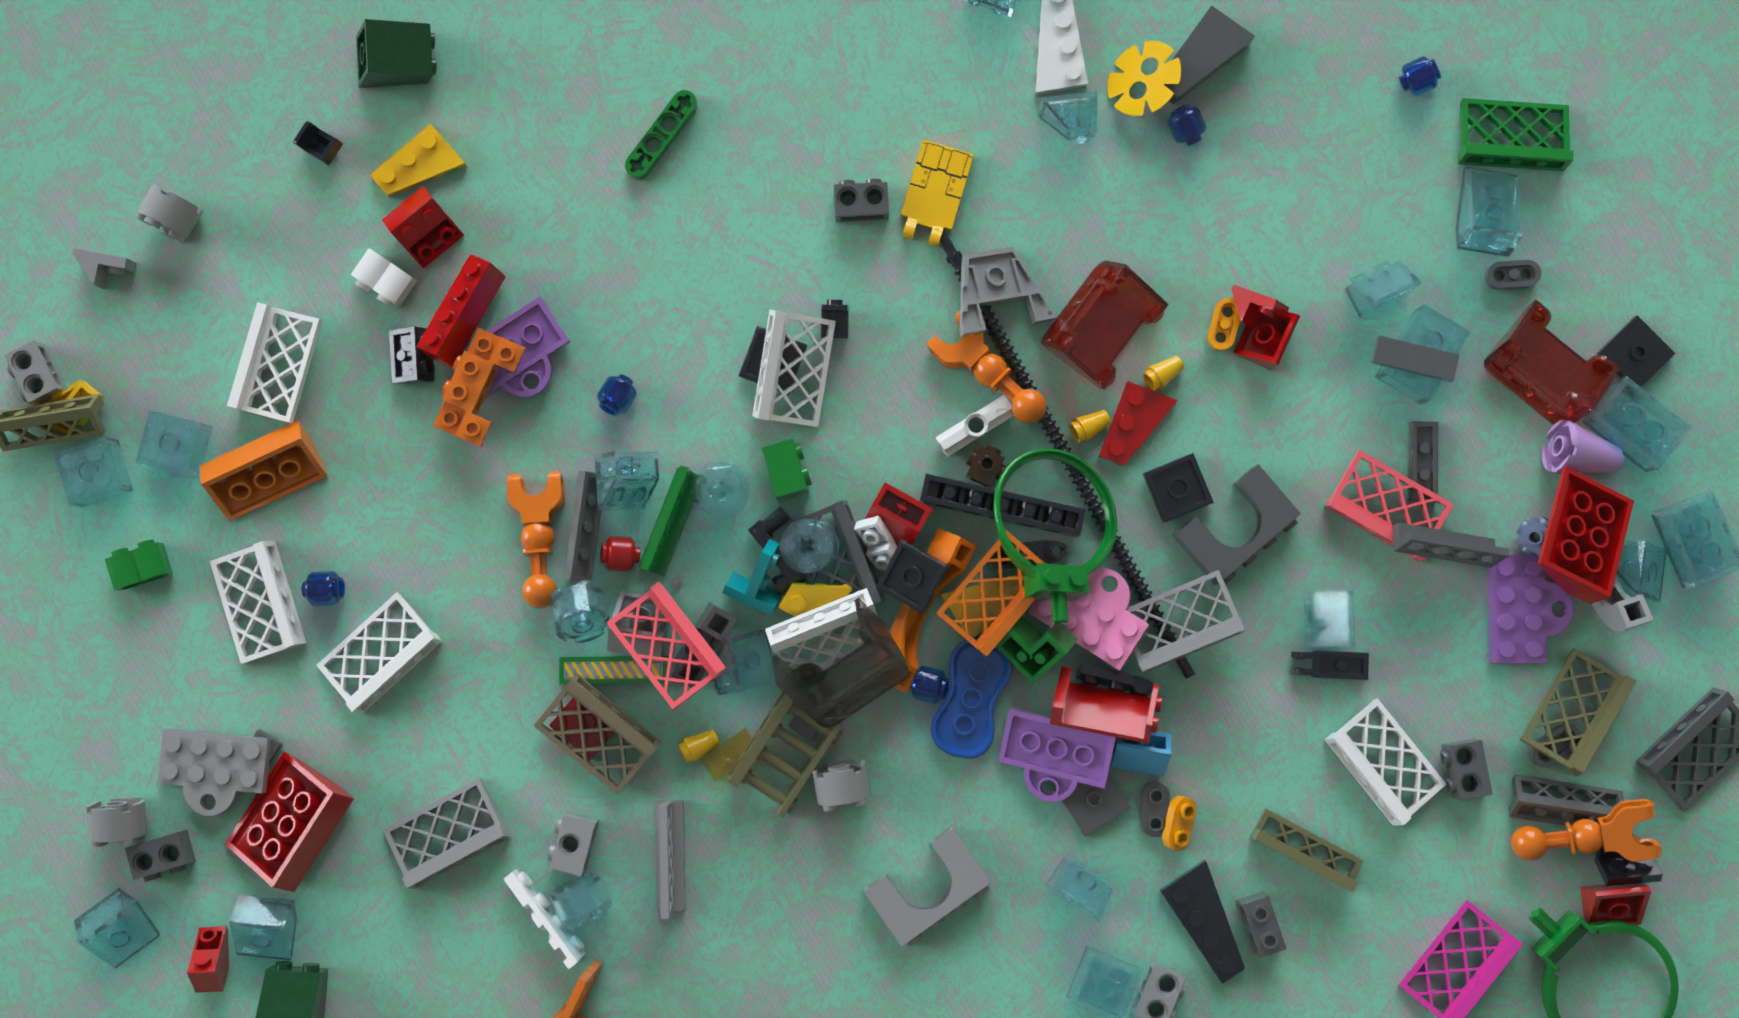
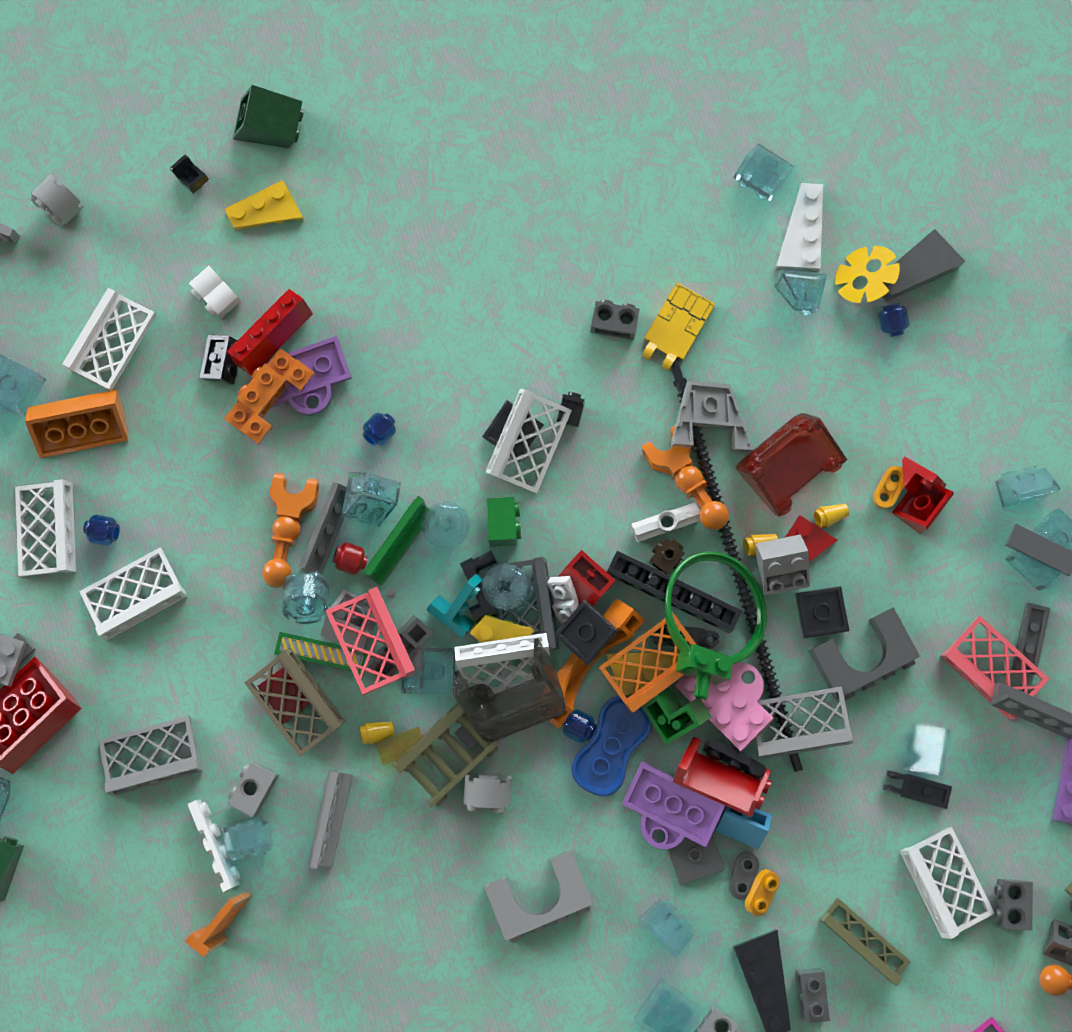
camera: 10 degrees right, 5 degrees down
(422, 227) = (256, 259): red slope -> none
(657, 132) = (463, 228): green beam -> none
(1121, 444) = (783, 564): none -> light grey slope

